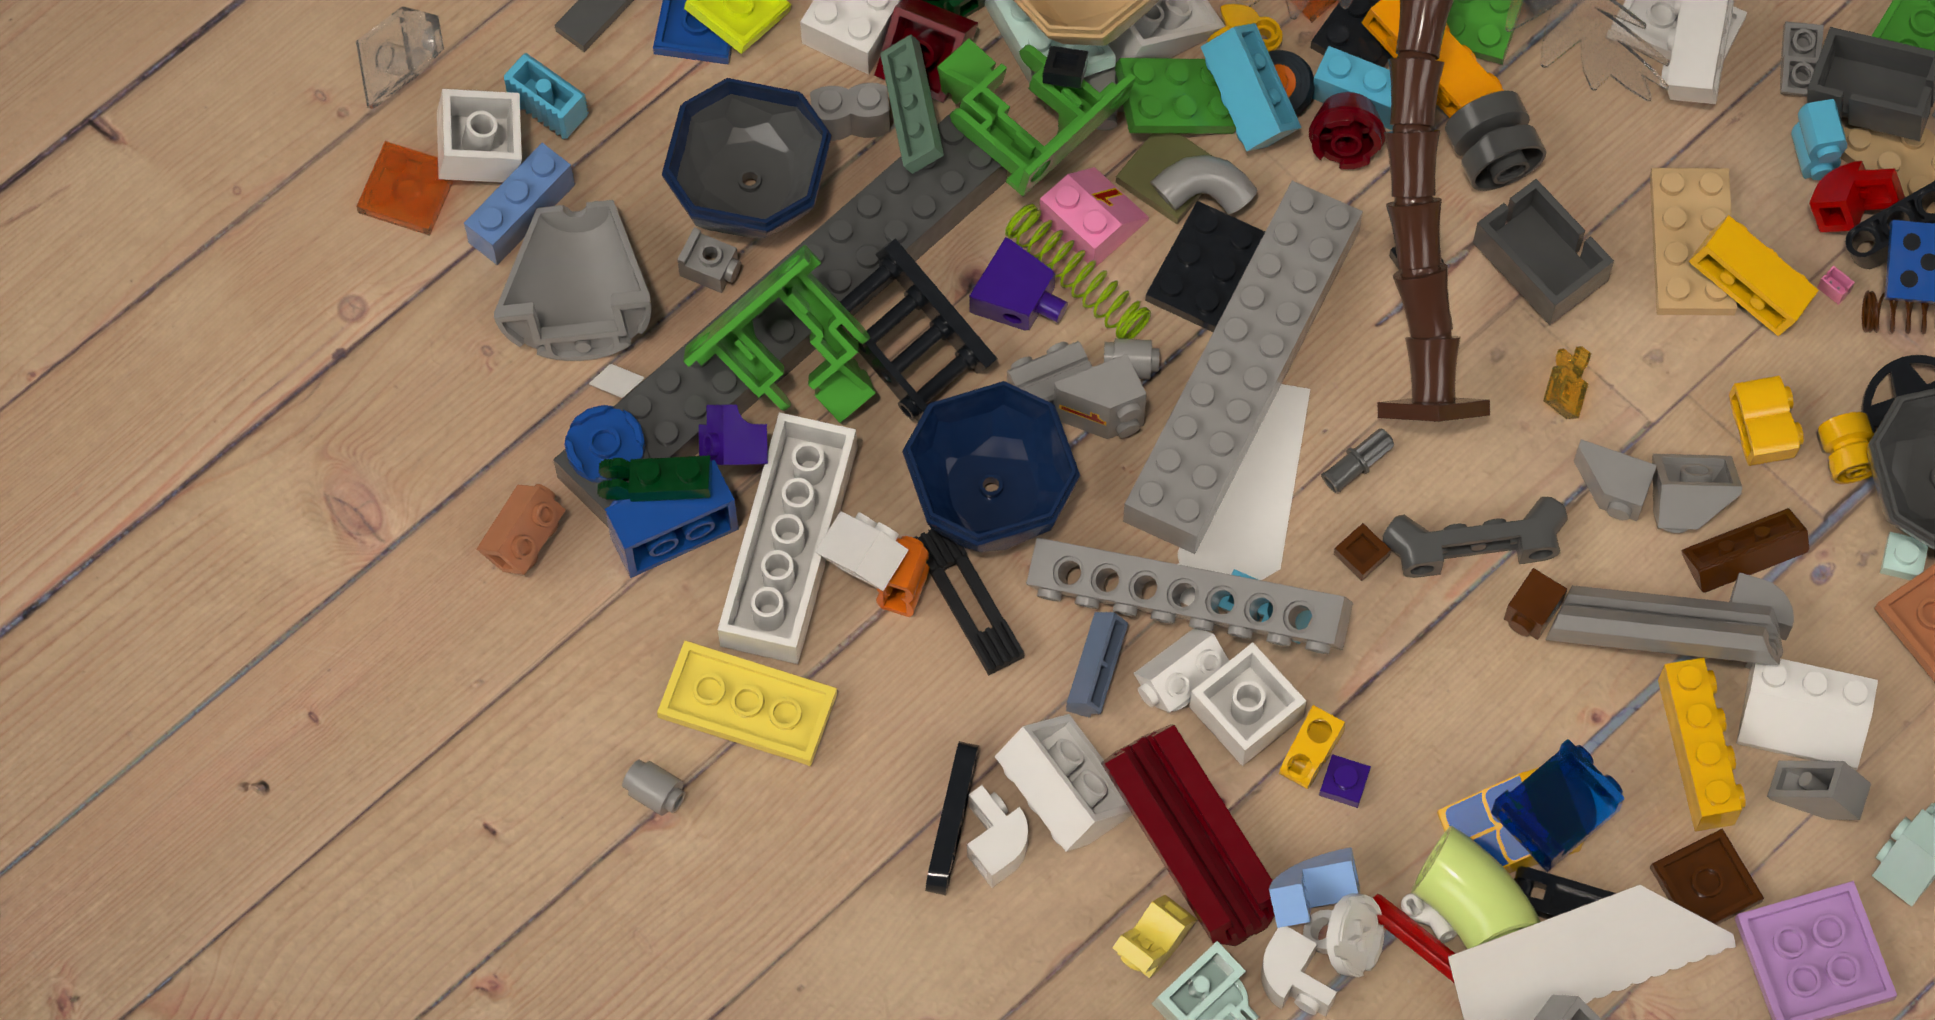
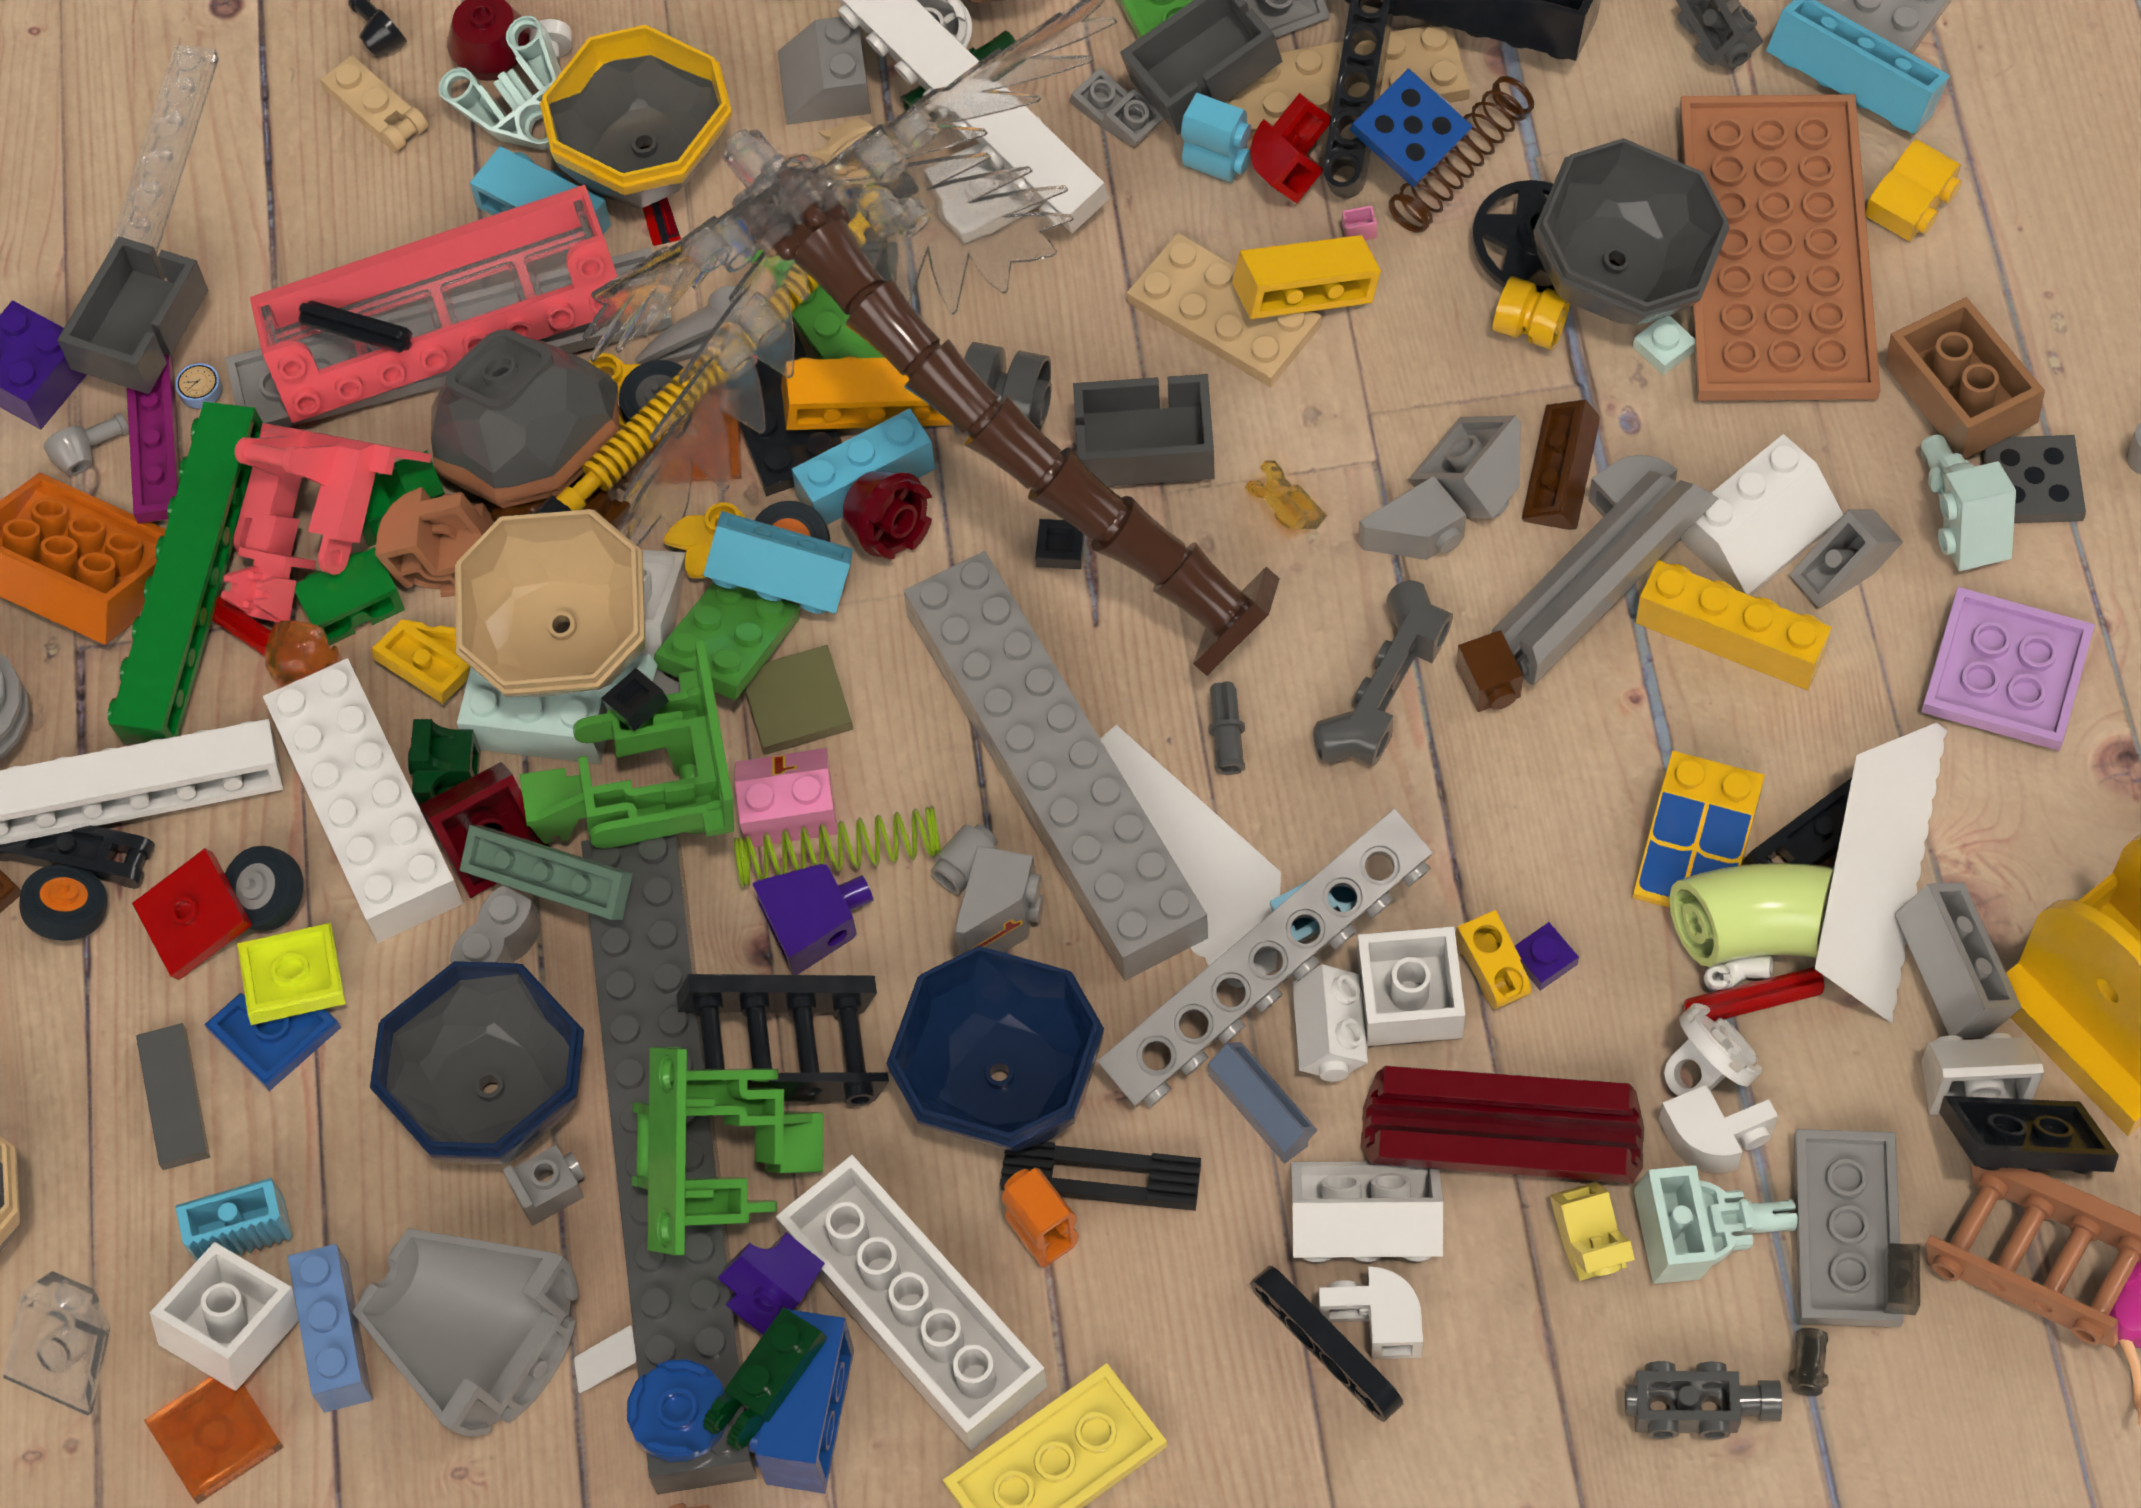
camera: 50 degrees left, 5 degrees down
(863, 549) = (995, 1228): white brick -> none
(1039, 374) = (927, 938): light grey brick -> none
(1204, 266) = (919, 731): black plate -> none
(1207, 176) = (832, 665): light grey cylinder -> none
(1313, 884) = (1639, 1043): light blue brick -> none
(1362, 551) = (1323, 785): reddish brown plate -> none
(1559, 805) = (1725, 772): clear blue panel -> none
(1708, 879) = (1865, 707): reddish brown tile -> none
(1765, 420) = (1450, 364): yellow brick -> none

